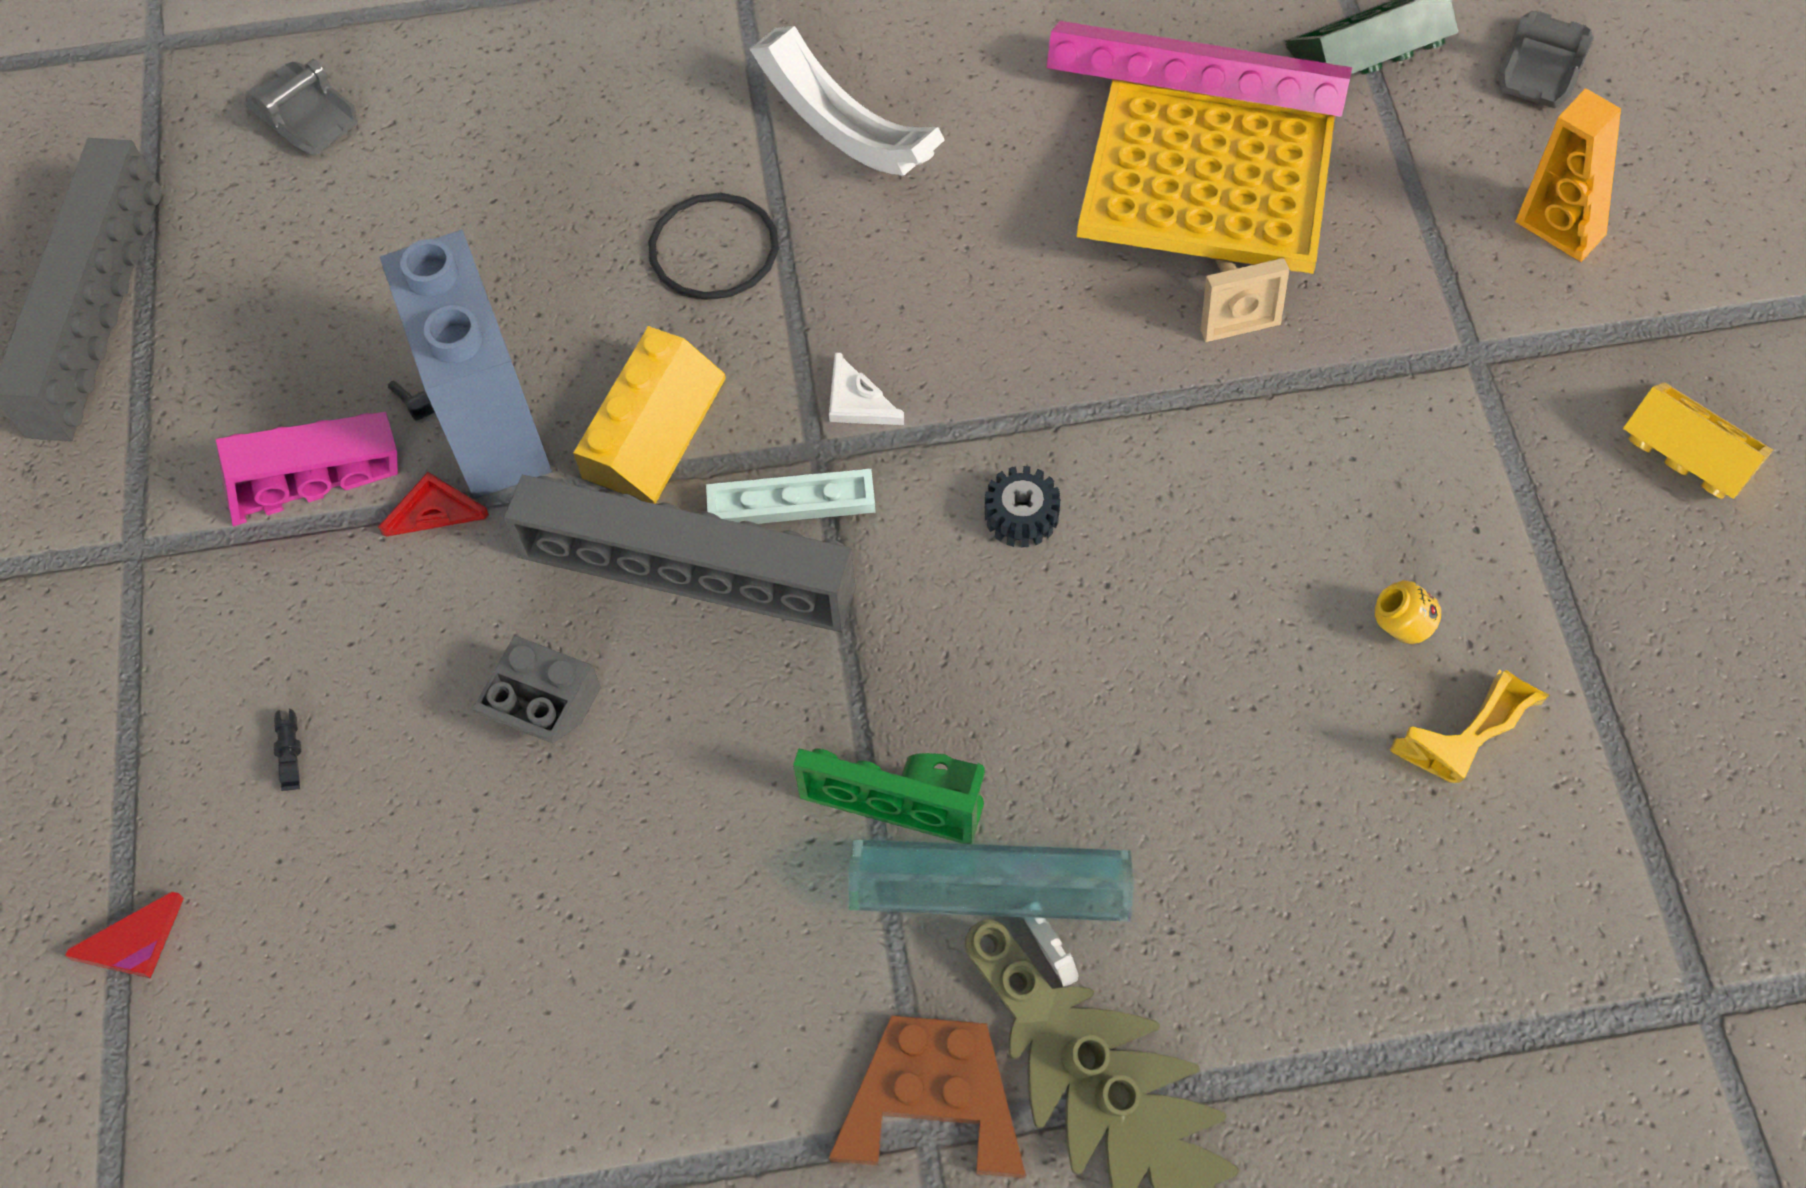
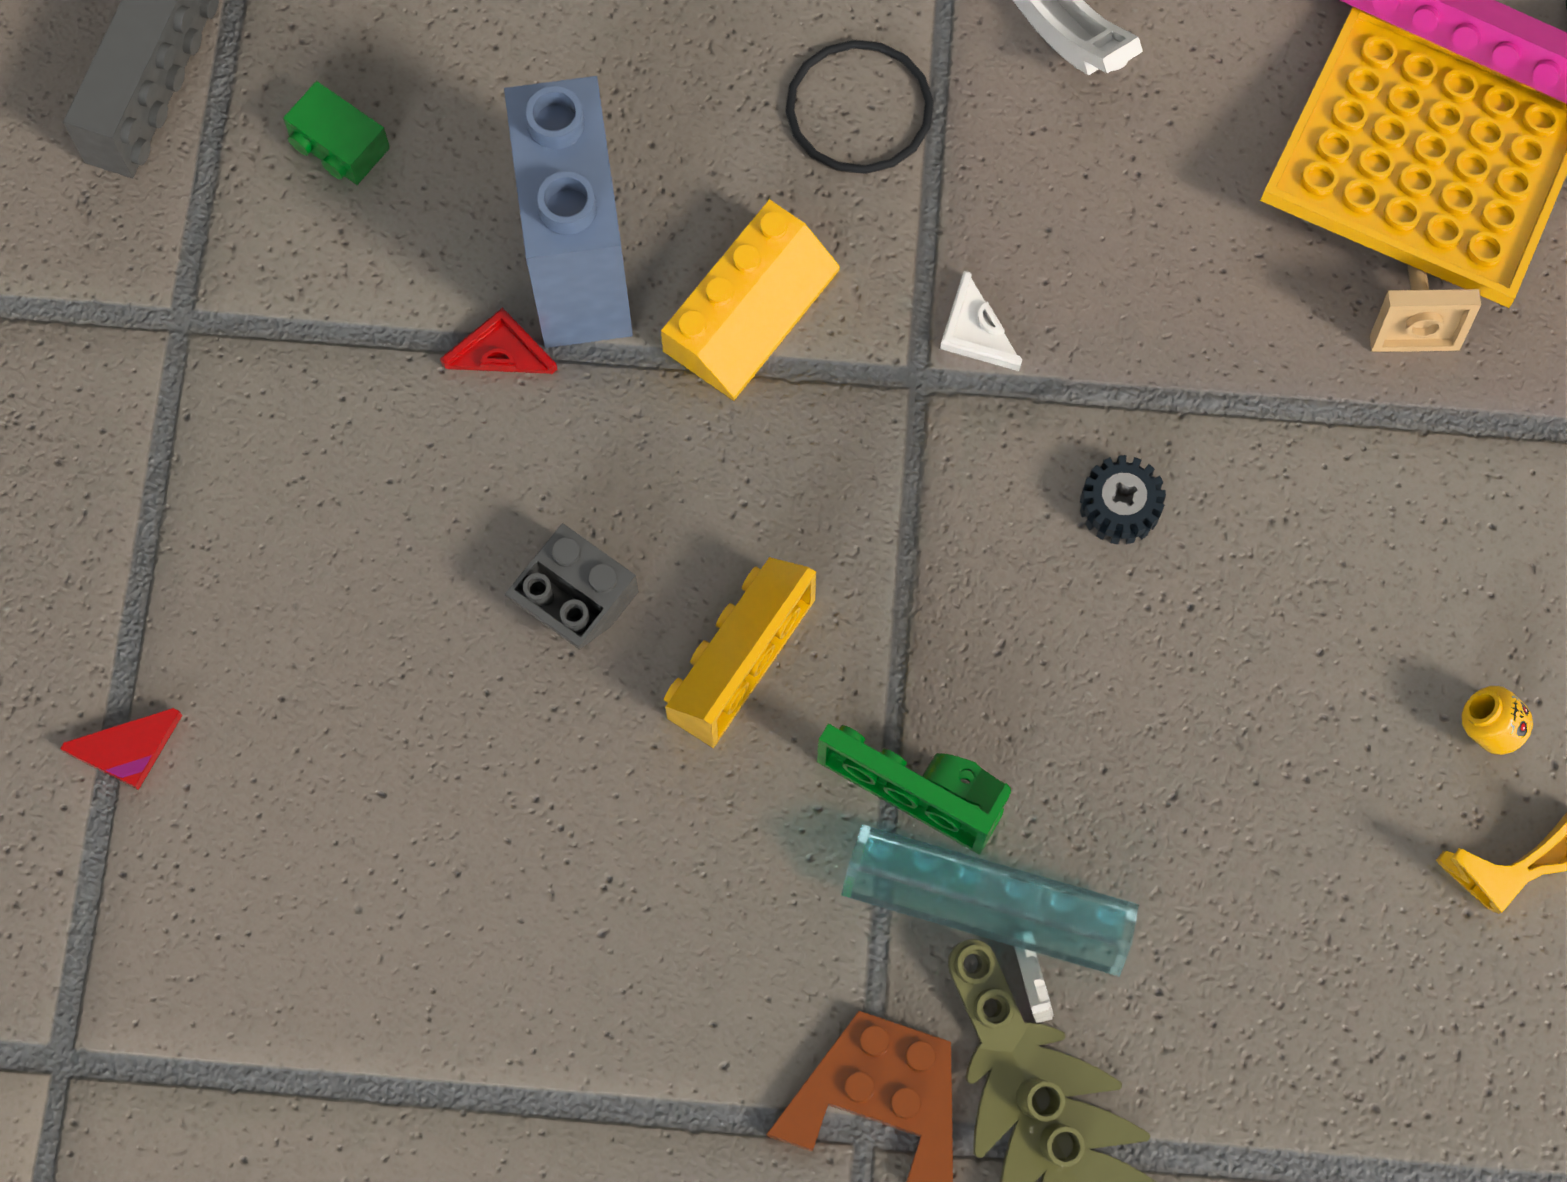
camera: 10 degrees right, 10 degrees up
(250, 361) = (336, 134): none -> green brick
(287, 750) = (308, 585): black piece -> none
(304, 461) = (377, 268): dark pink wedge -> none
(418, 405) = (505, 226): black hand -> none
(682, 552) = (753, 470): dark grey brick -> none
(706, 711) = (741, 650): none -> yellow slope
(793, 497) = (879, 431): light aqua plate -> none

